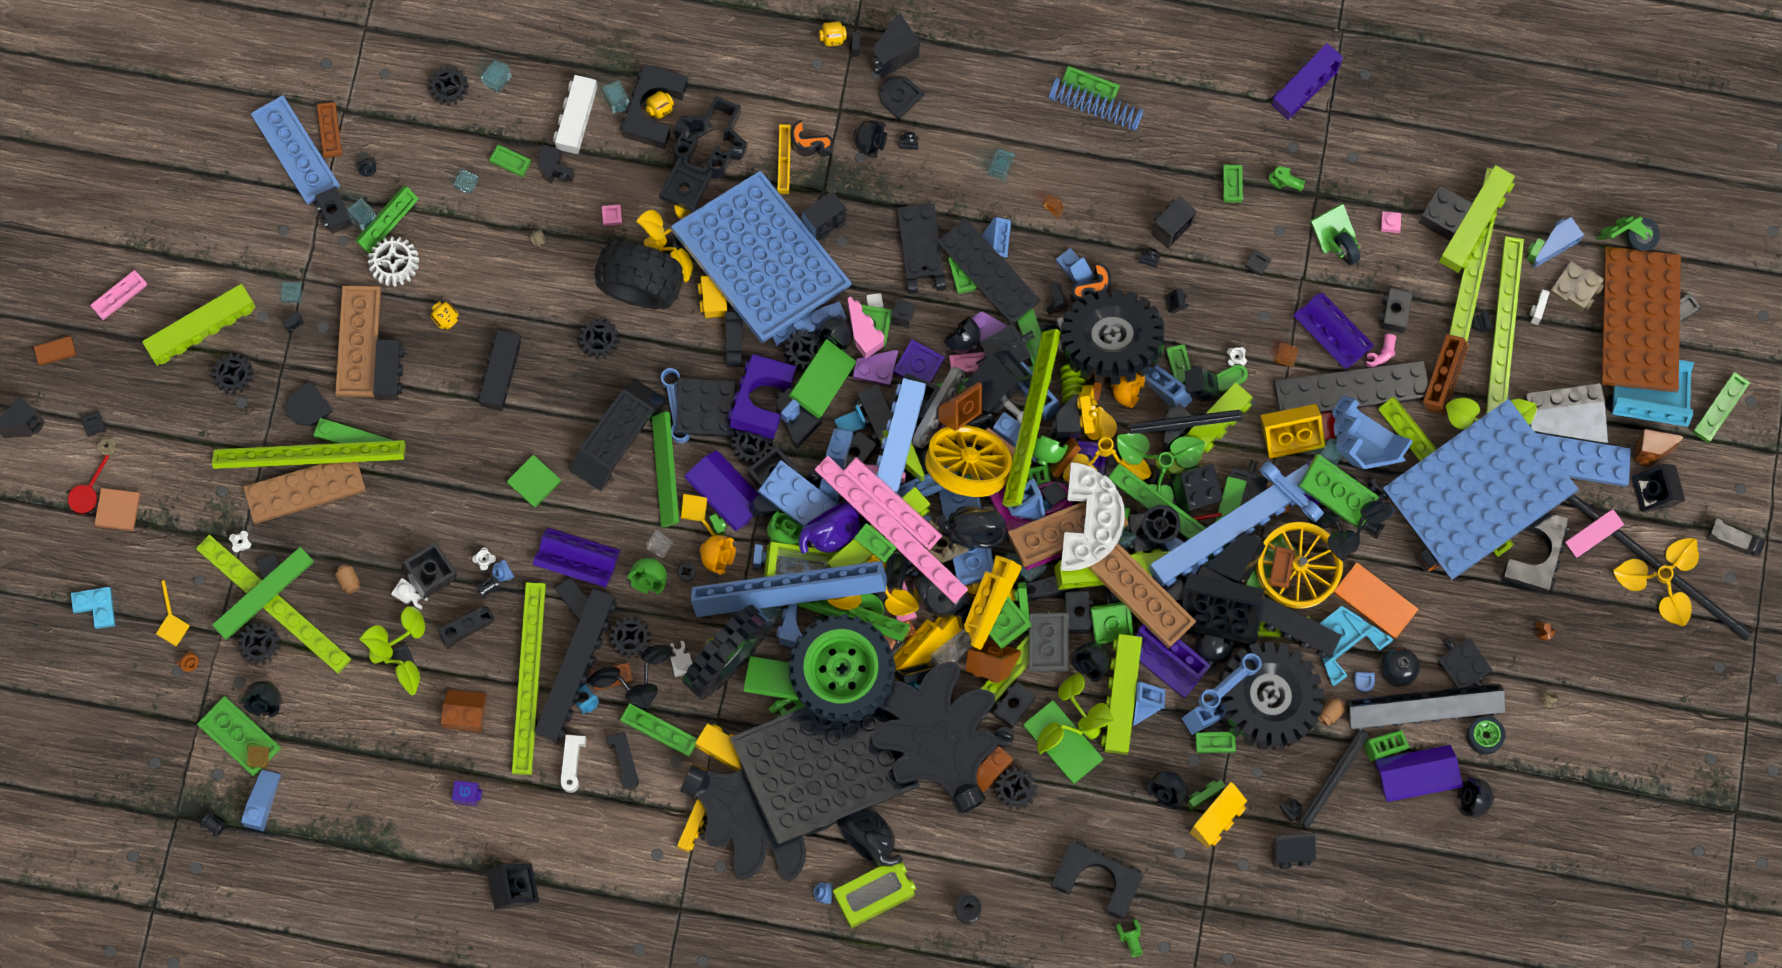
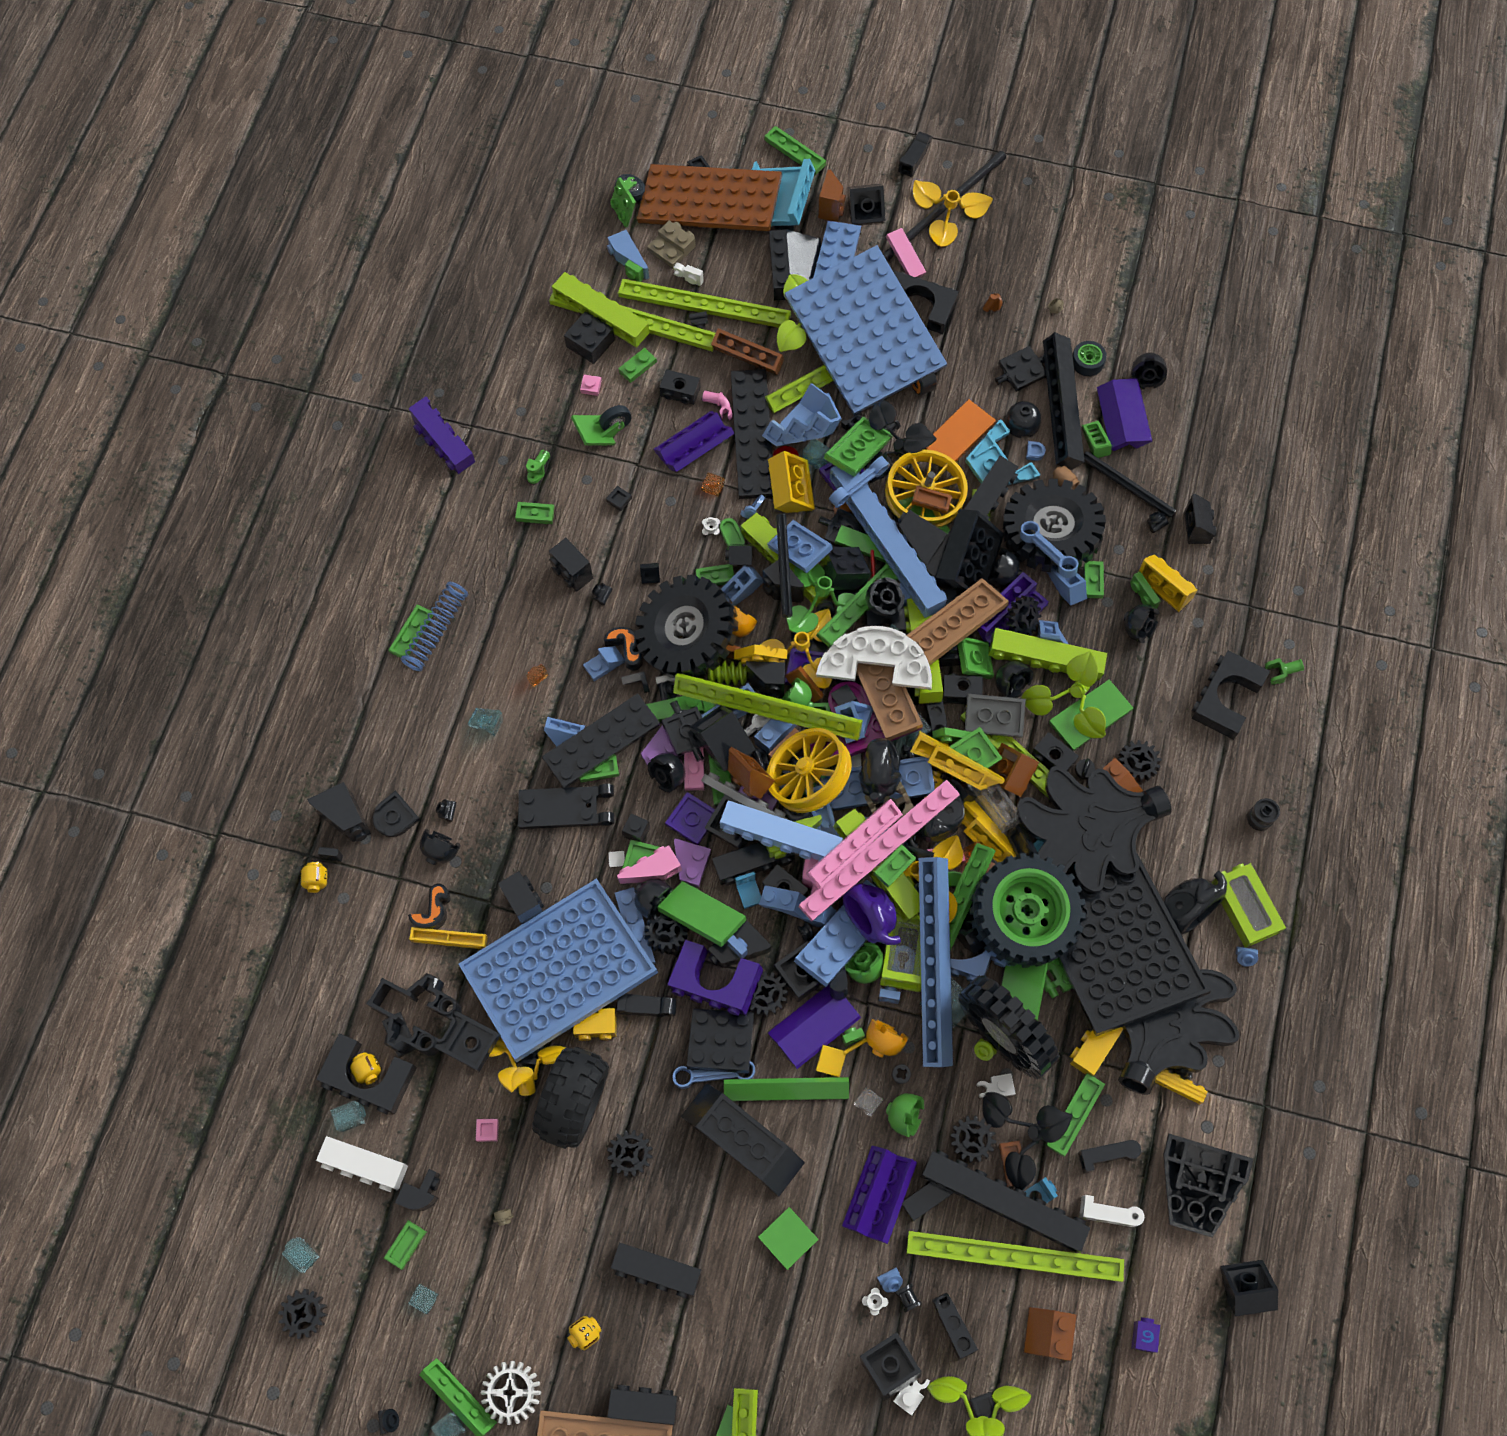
camera: 80 degrees left, 5 degrees down
(603, 840) = (1201, 1183): none -> black wedge
(1160, 667) = (1023, 615): none -> black gear
(1211, 441) = (803, 546): none -> medium blue plate
(1254, 392) = (749, 511): none -> medium blue piece
(1421, 266) = (637, 365): none -> bright green plate

